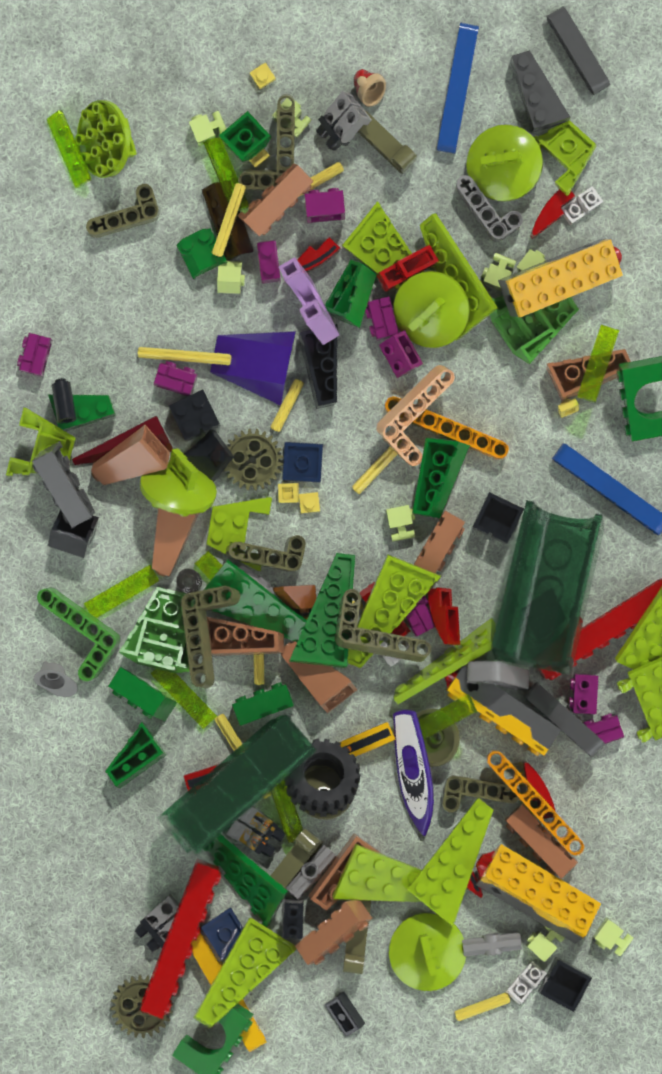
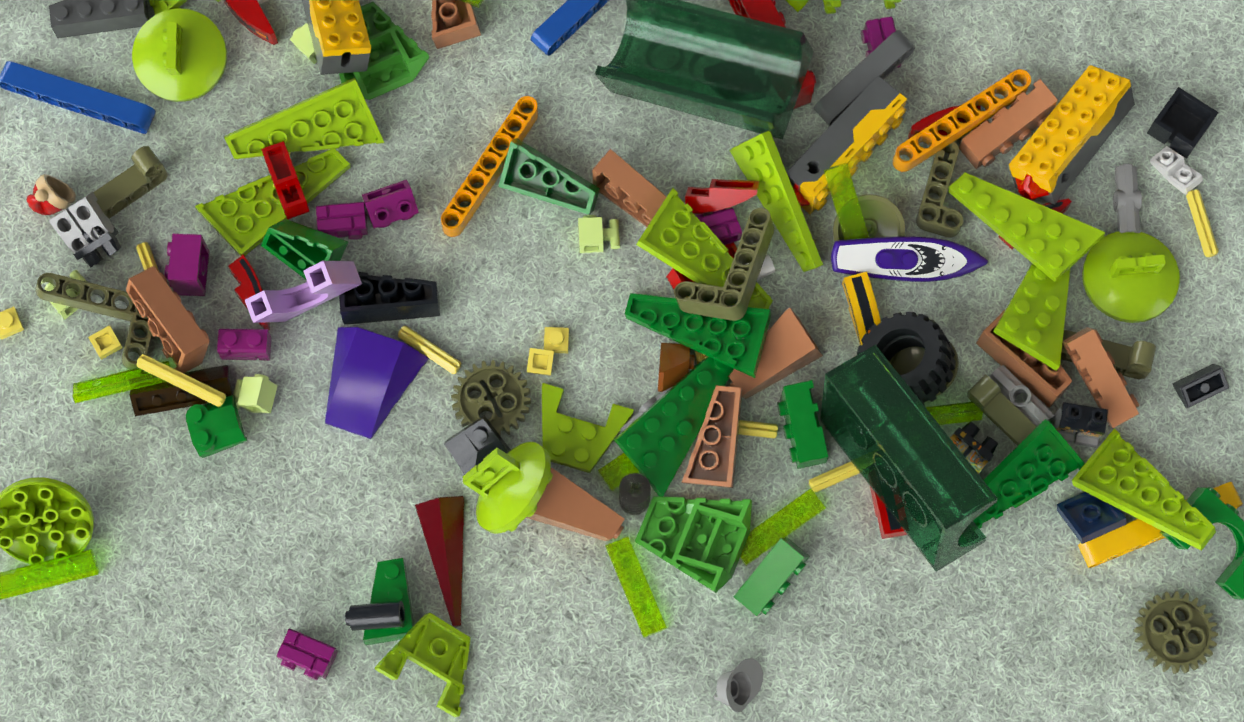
camera: 85 degrees left, 15 degrees down
(63, 485) = (485, 631): dark grey wedge -> none
(72, 539) = (548, 632): black piece -> none
(84, 628) = (675, 638): bright green beam -> none
(121, 215) = (147, 518): olive beam -> none
(133, 457) = (465, 544): nougat slope -> none
(136, 757) = (852, 593): green wedge -> none
(157, 924) = (1070, 588): hips -> none
(175, 379) = (372, 479): magenta brick -> none
(179, 939) = (1096, 561): red brick -> none
(181, 355) = (343, 465): light yellow axle -> none
(194, 414) = (422, 461): black piece -> none
(201, 630) = (700, 483): olive beam -> none
(204, 129) = (57, 401): yellowish green brick -> none
(245, 137) = (80, 348): green slope -> none
(264, 553) = (614, 398): olive beam -> none
(302, 462) = (504, 340): dark blue tile -> none
(375, 469) = (521, 249): light yellow axle -> none
(412, 412) = (461, 198): light nougat beam -> none
(431, 309) = (341, 157): lime bracket -> none
(485, 206) = (227, 85): light grey beam -> none
(494, 273) = (310, 82): yellowish green brick -> none
(498, 518) = (609, 120): black piece -> none
(498, 674) = (801, 134): light grey beam -> none
(542, 944) = (1131, 143): yellowish green brick -> none
(568, 407) = (488, 27): light yellow plate -> none
(588, 694) = (835, 54): magenta brick -> none
(609, 934) = (1130, 65): yellowish green brick -> none

